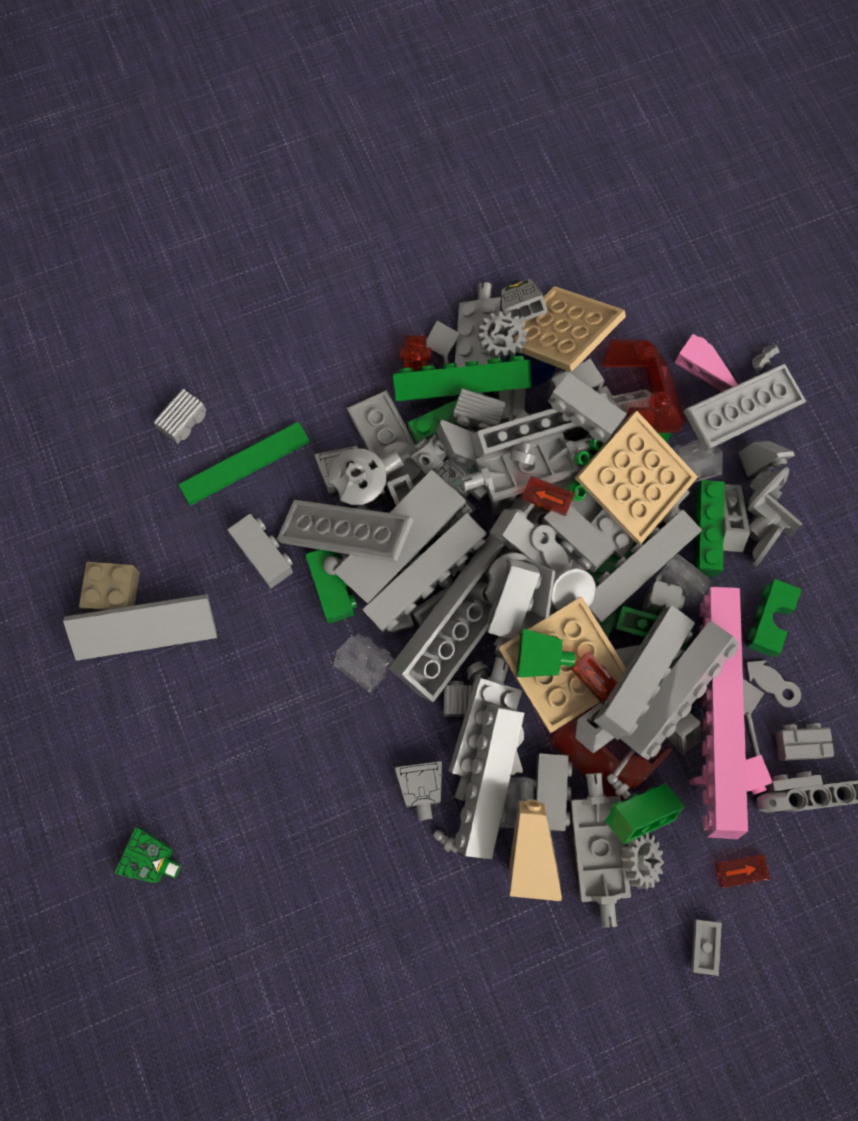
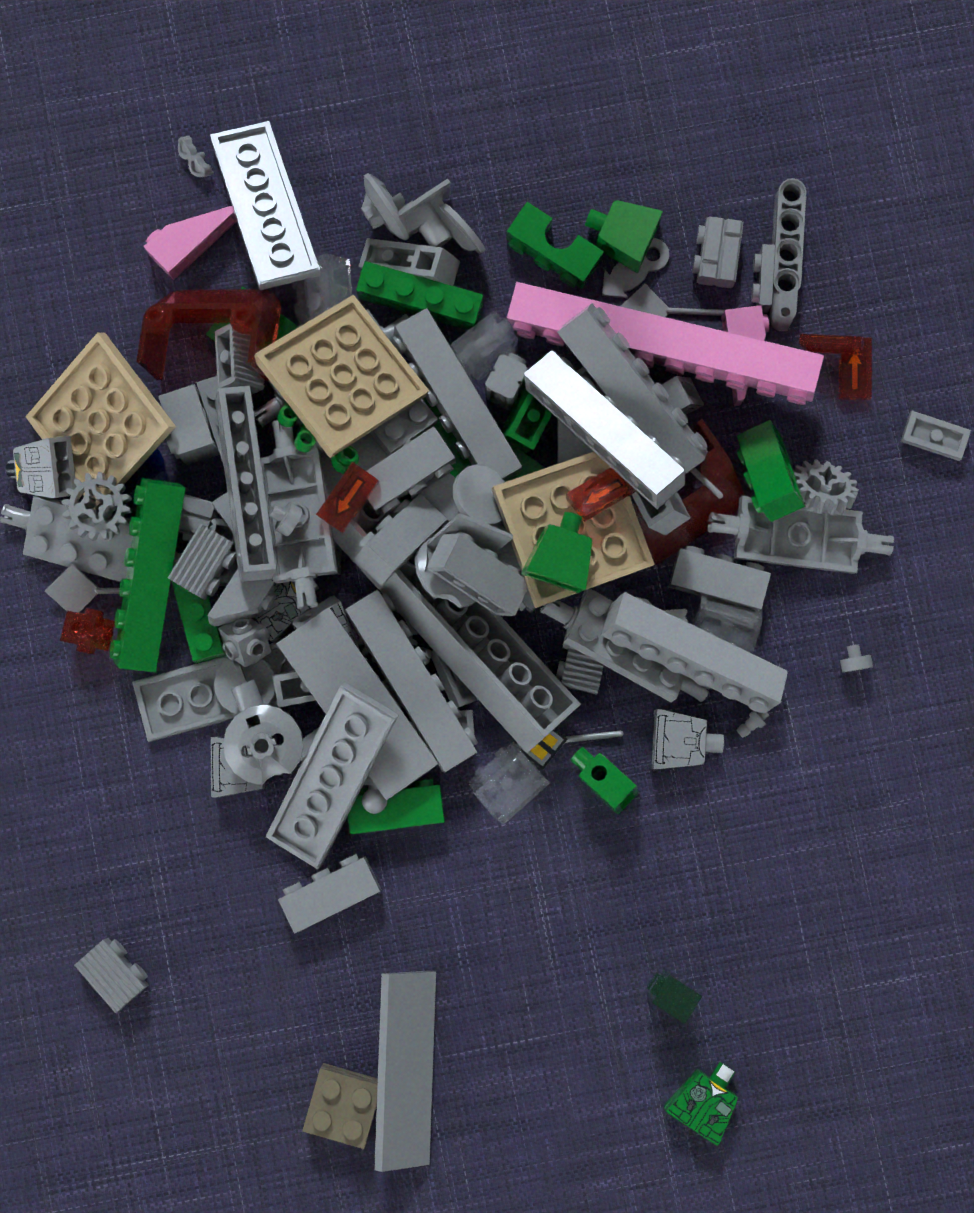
camera: 75 degrees left, 10 degrees up
(224, 815) = (673, 995): none -> clear green brick
(244, 463) = (198, 896): green tile -> none
(375, 740) = (614, 789): none -> green torso
(398, 688) = (552, 743): none -> piece
(477, 670) = (550, 639): light grey plate -> none
(511, 914) = (855, 660): none -> light grey tile
(532, 858) = (798, 620): tan slope -> none
(552, 552) = (423, 509): light grey brick -> none
(586, 407) = (241, 420): light grey brick -> none
(621, 789) = (735, 492): light grey piece -> none
(757, 847) = (832, 344): none -> clear red tile
(764, 457) = (338, 199): light grey slope -> none
(799, 669) = (625, 232): none -> green torso

